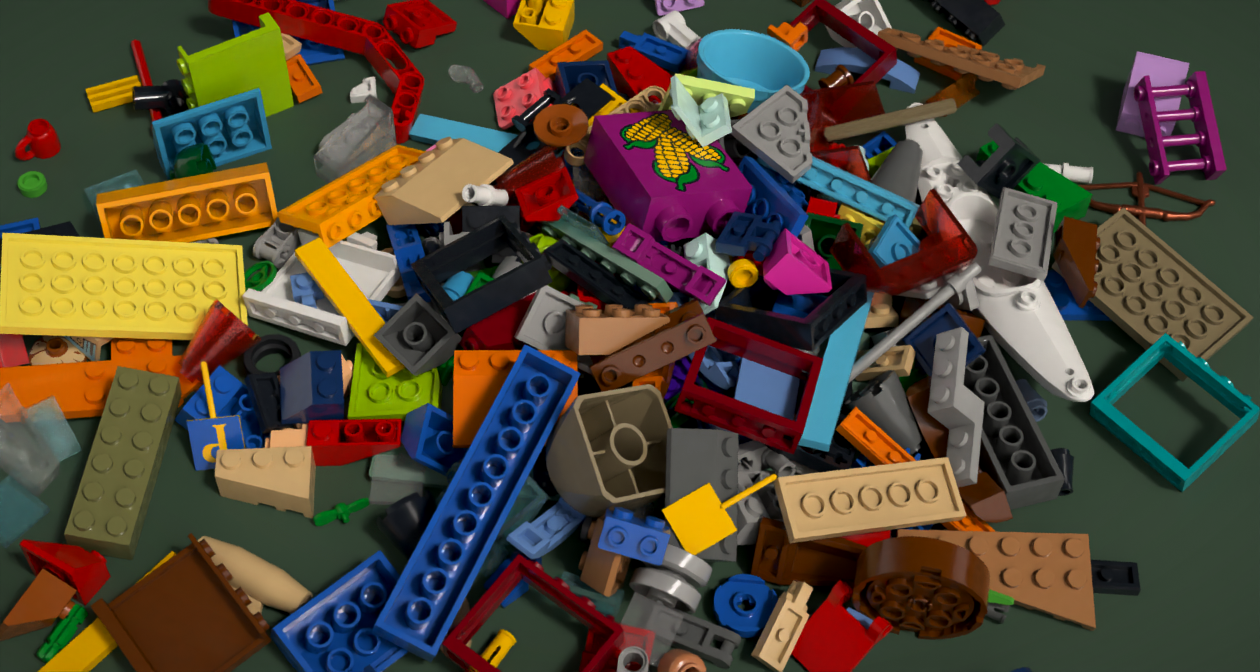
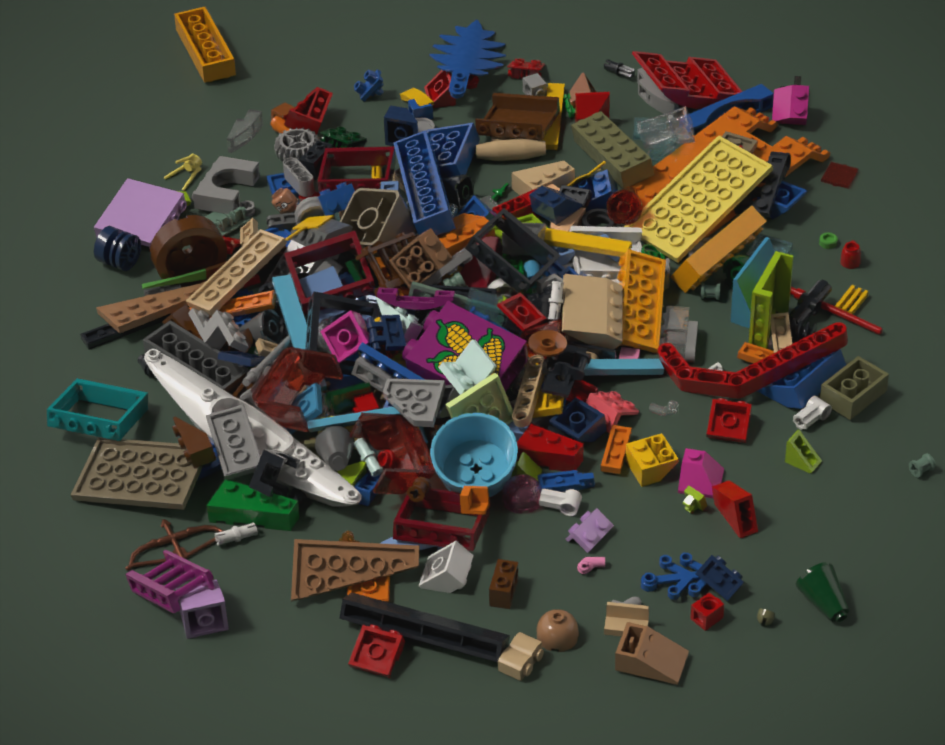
camera: 150 degrees right, 10 degrees down
(890, 120) = (361, 478): dark tan axle -> none

